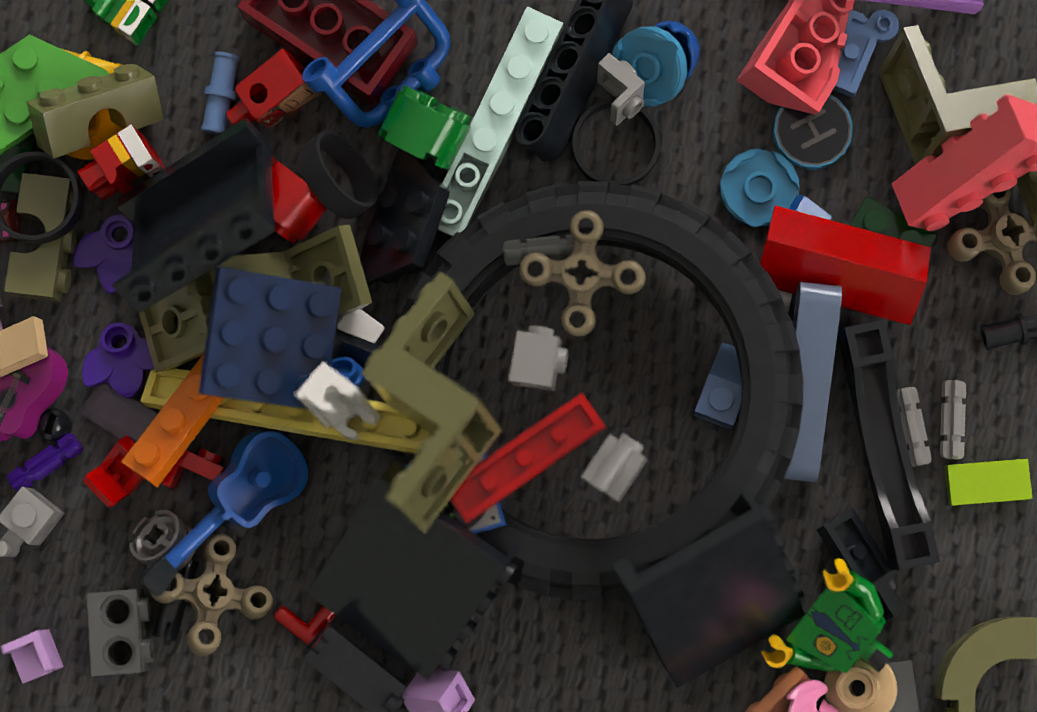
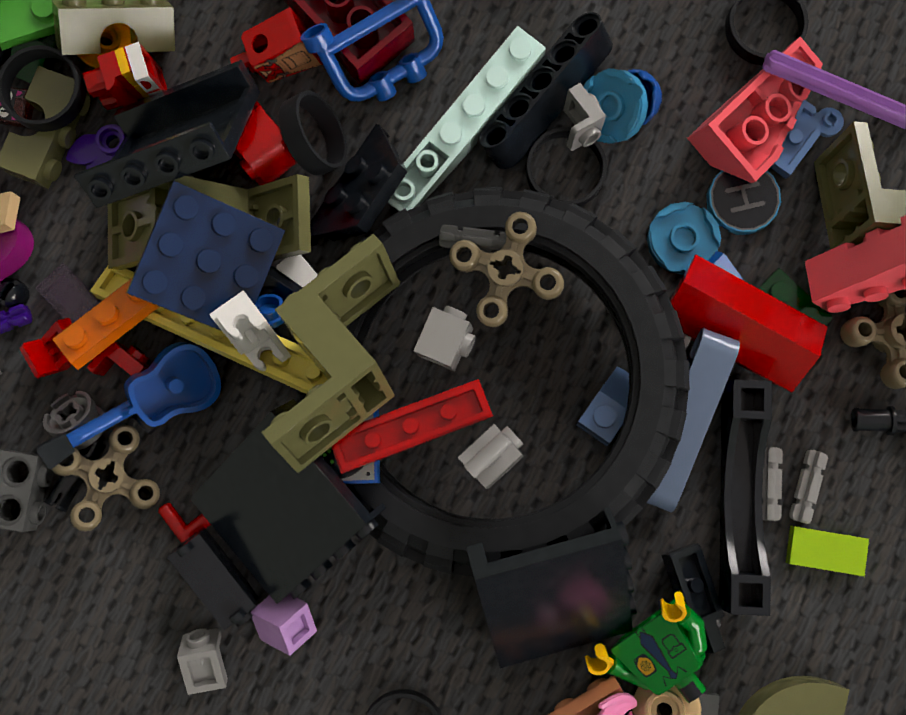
camera: 15 degrees right, 0 degrees up
(119, 366) = (80, 255): dark purple plate -> none
(220, 92) = (230, 40): medium blue pin -> none
(425, 129) = (401, 109): green brick -> none

